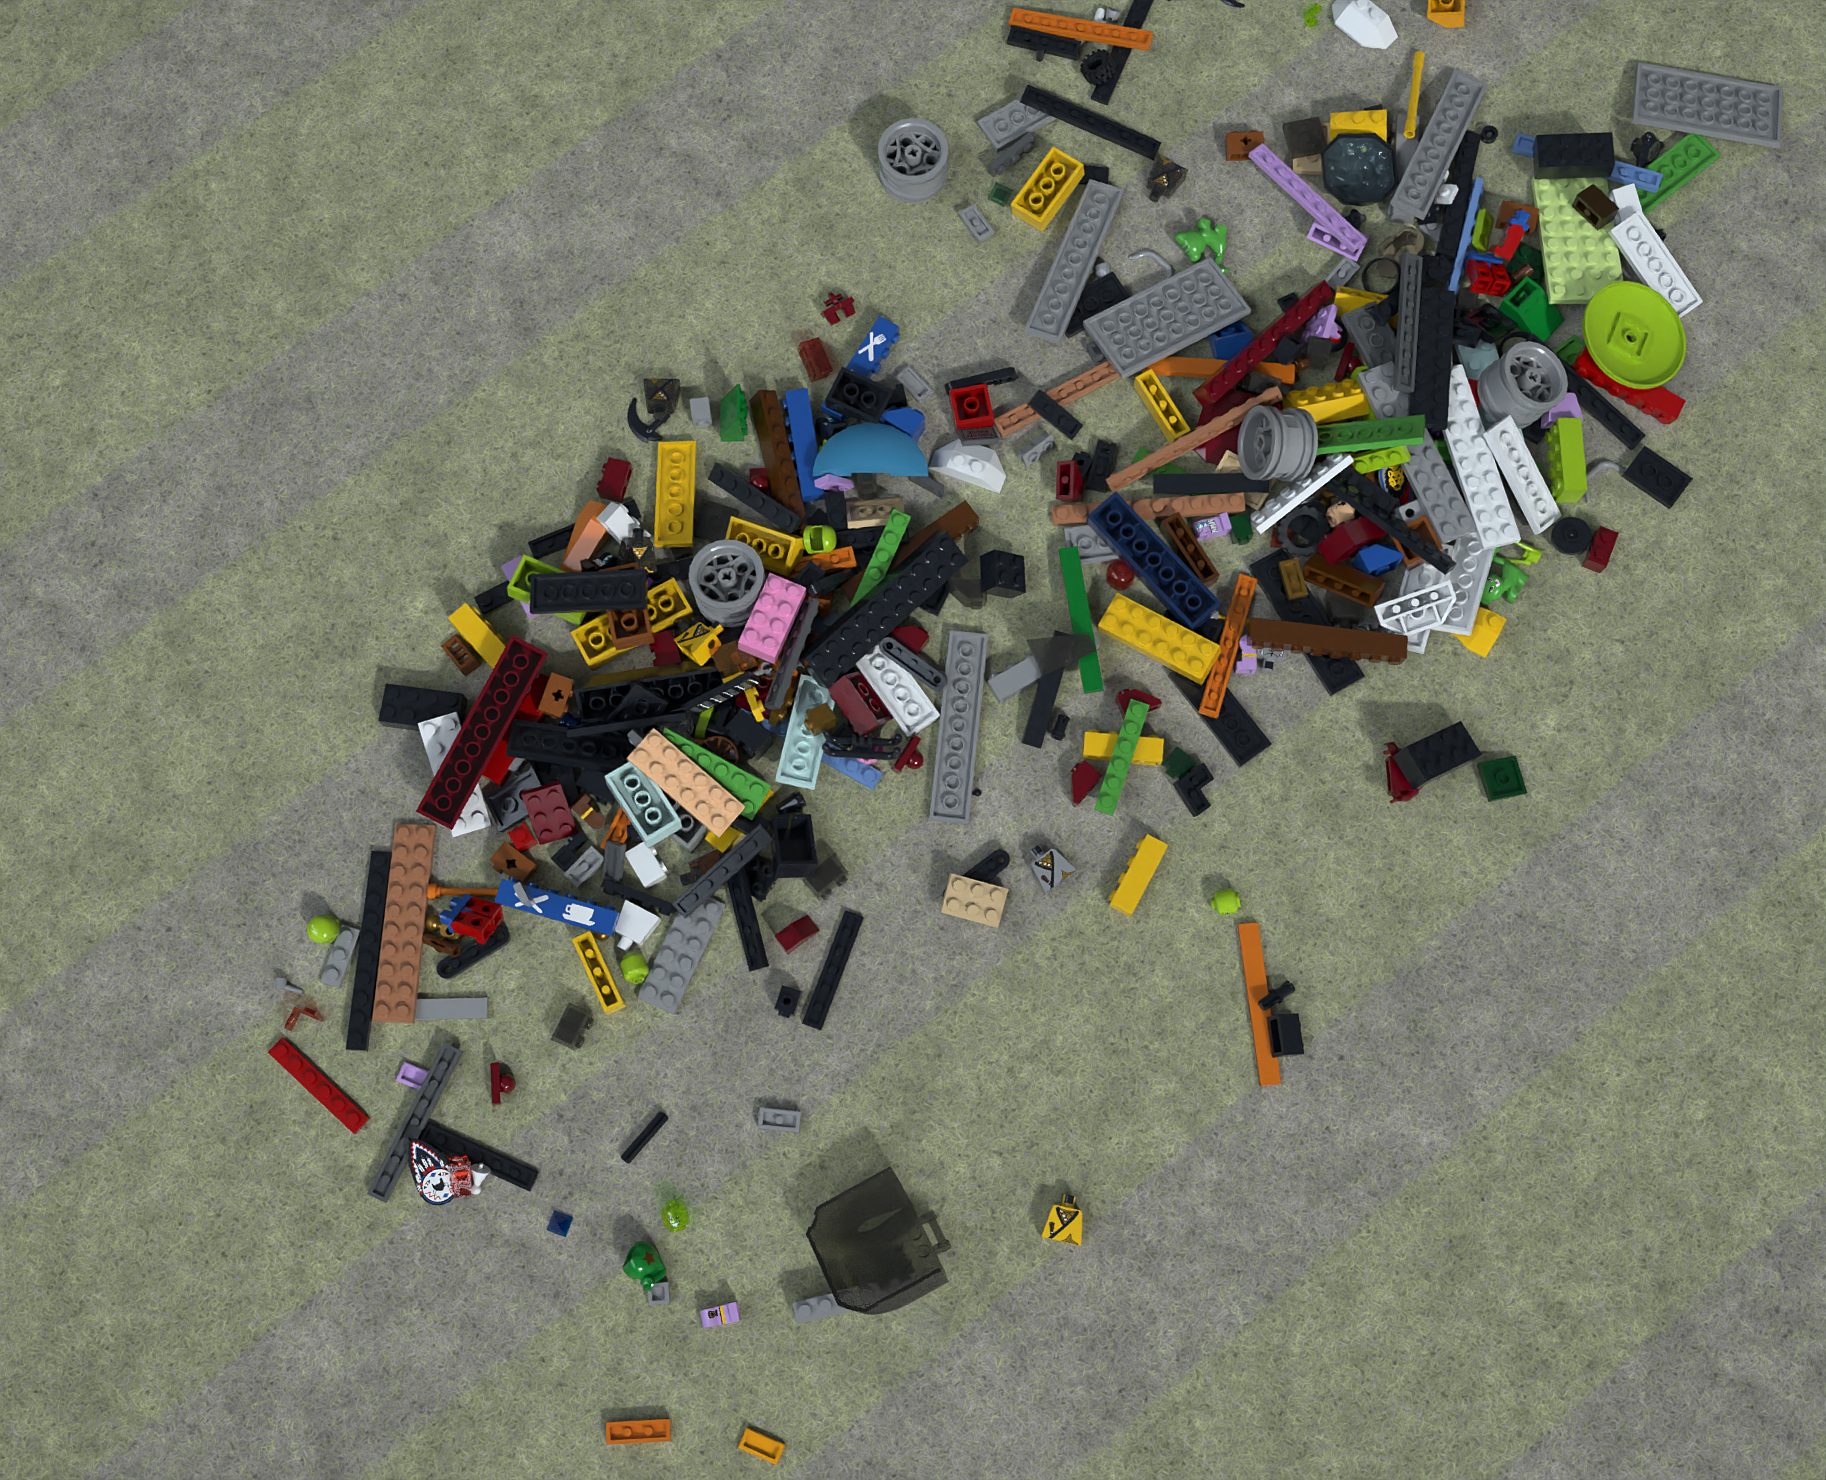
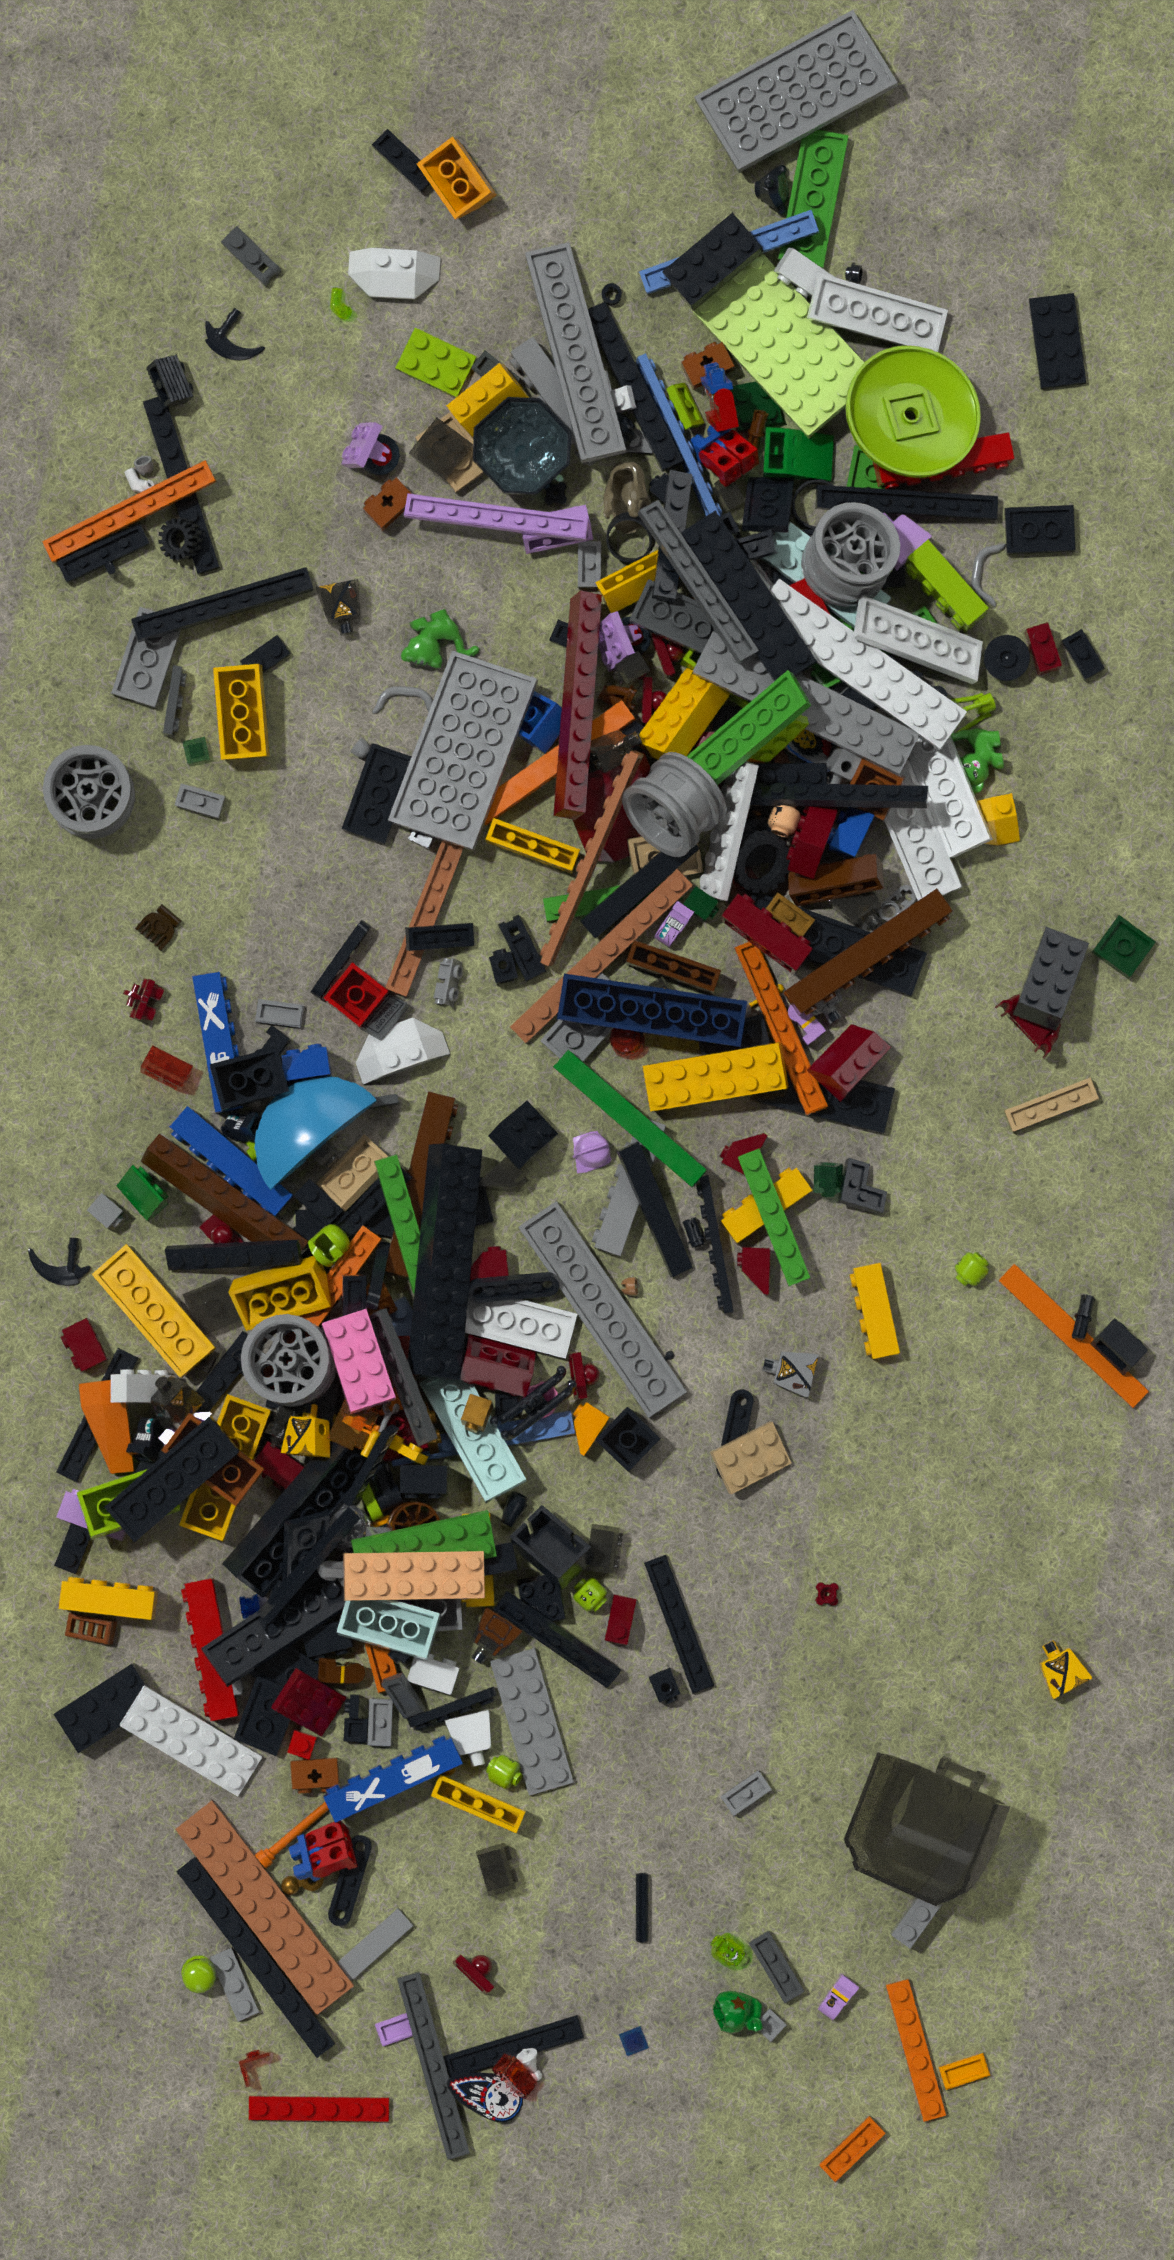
camera: 40 degrees left, 10 degrees up
(281, 983) = (204, 2052): light grey hand -> none
(441, 944) = (316, 1898): reddish brown pin -> none
(481, 732) = (189, 1685): dark red brick -> none
(524, 894) = (360, 1795): light grey tile -> none
(554, 684) = (213, 1583): dark orange brick -> none
(662, 396) = (56, 1228): clear smoke torso -> none
(697, 1257) = (776, 1966): none -> dark grey plate
(723, 871) = (511, 1622): black tile -> none
(741, 1401) = (915, 2050): none -> orange plate
(791, 900) = (590, 1594): none -> lime head
(834, 483) = (294, 1179): lavender tile -> none
(885, 791) = (588, 1425): none -> light orange slope
(888, 275) = (160, 924): none -> dark brown piece
(903, 820) = (627, 1439): none -> black brick
(948, 1040) = (822, 1588): none -> dark red plate
(990, 724) = (630, 1286): none -> medium nougat hinge
(1037, 624) = (591, 1151): none -> lavender piece
(1059, 651) = (637, 1171): clear smoke wing -> none
(1063, 752) = (716, 1254): none -> black plate
(1069, 482) = (509, 994): dark red slope -> none
(1074, 261) = (327, 763): light grey plate -> none
(1256, 701) = (848, 1060): none -> dark red slope
(1262, 109) = (371, 450): none -> lavender plate
(1269, 575) = (766, 934): none -> dark red brick
(1288, 349) = (606, 693): black brick -> none
(1313, 378) = (650, 700): none -> dark red tile
(1343, 89) = (435, 362): none -> lime plate
(1369, 840) = (1051, 1104): none -> tan plate
(1410, 123) = (531, 354): yellow piece -> none
(1417, 610) = (924, 855): white wedge -> none
(1595, 207) = (775, 299): dark brown brick -> none
(1623, 575) = (1083, 654): none -> black plate
(1761, 375) = (1057, 341): none -> black plate

